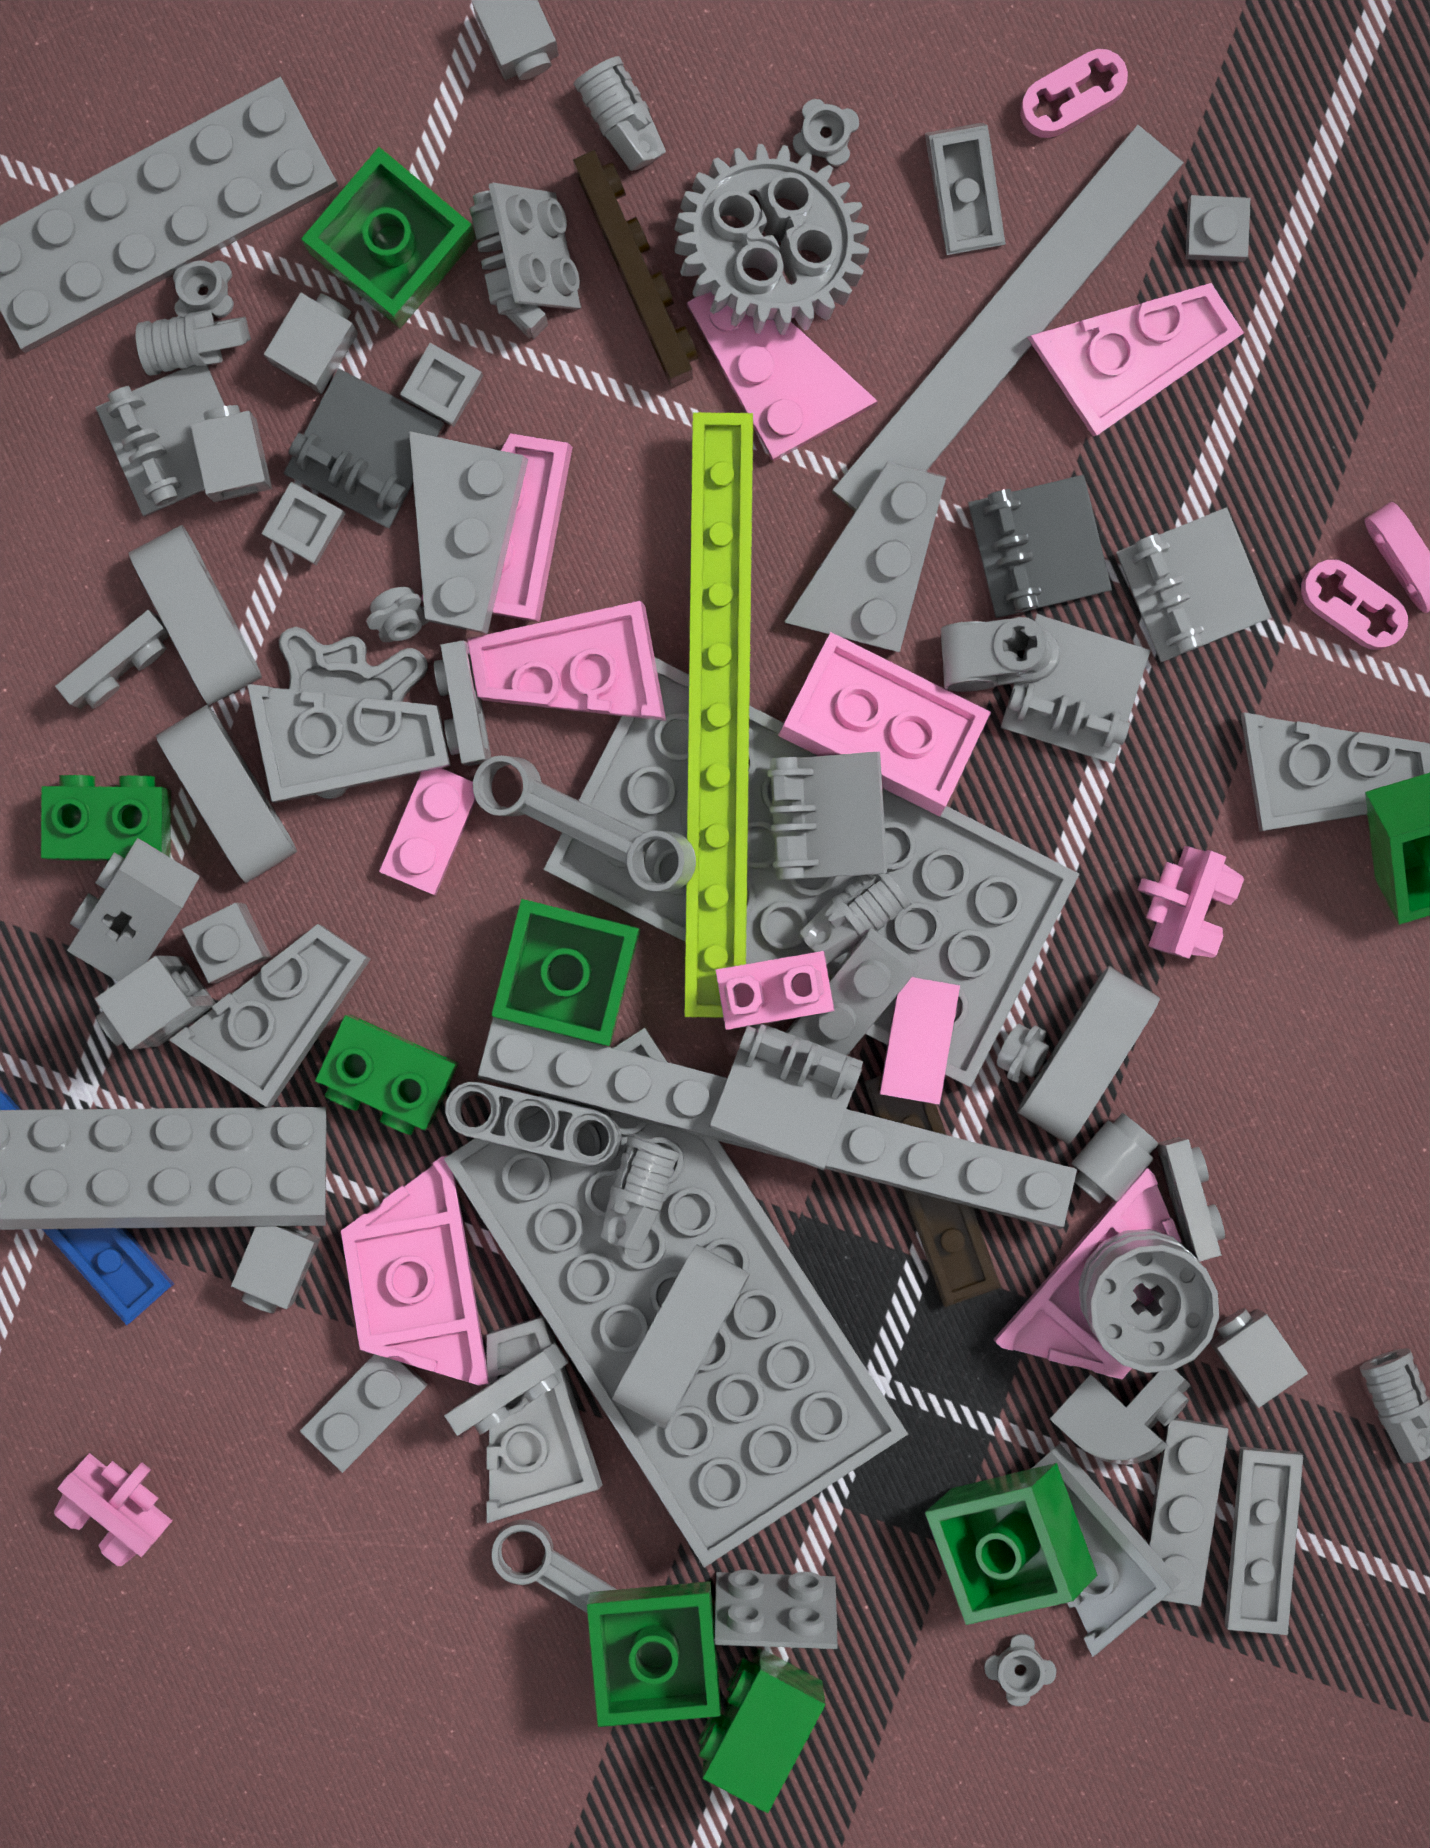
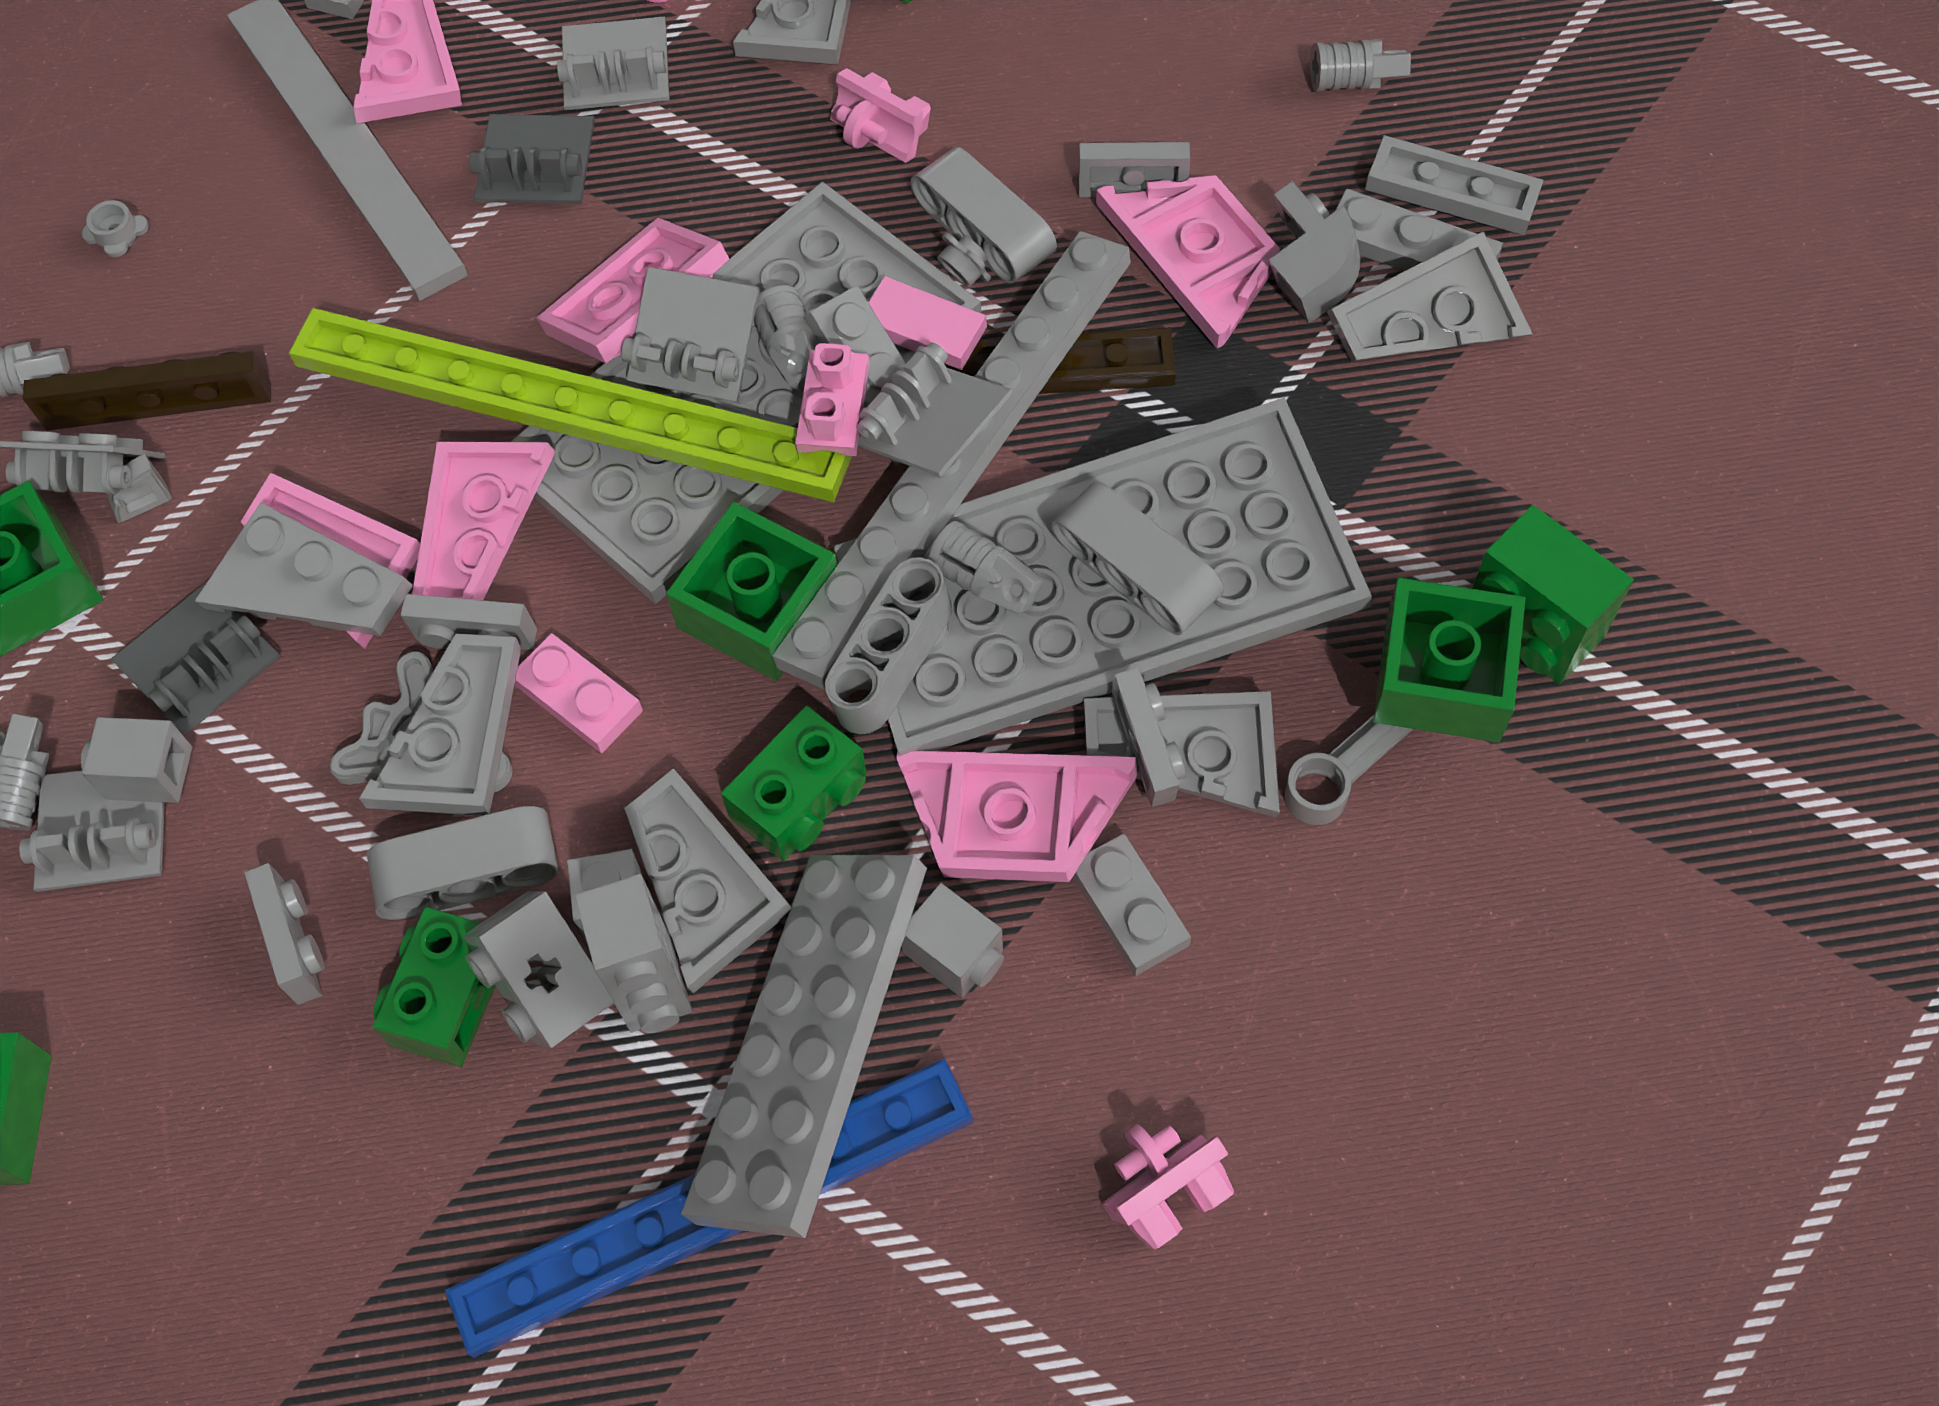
camera: 70 degrees left, 25 degrees down
(195, 615) = (297, 837): light grey beam -> none
(303, 523) = (237, 724): light grey plate -> none
(312, 341) = (73, 670): light grey brick -> none
(396, 614) = (360, 661): light grey plate -> none
(441, 384) = (169, 571): light grey plate -> none
(583, 823) = (619, 536): light grey piece -> none
(776, 1610) = (1434, 545): light grey hinge -> none
(780, 378) = (275, 312): bright pink wing -> none
(819, 225) = (177, 277): light grey gear -> none
(876, 563) = (491, 268): light grey wing -> none
(965, 187) = (211, 143): light grey slope -> none
(986, 653) = (606, 194): light grey piece -> none
(1011, 1544) = (1411, 349): green brick -> none
(1020, 1687) = (1537, 382): light grey plate -> none
(1066, 81) = (189, 53): bright pink beam -> none
(1085, 698) = (667, 159): light grey hinge -> none
(1114, 1159) = (1077, 206): light grey brick -> none
(1176, 1321) = (1212, 182): light grey wheel -> none
(1256, 1355) = (1287, 150): light grey brick -> none

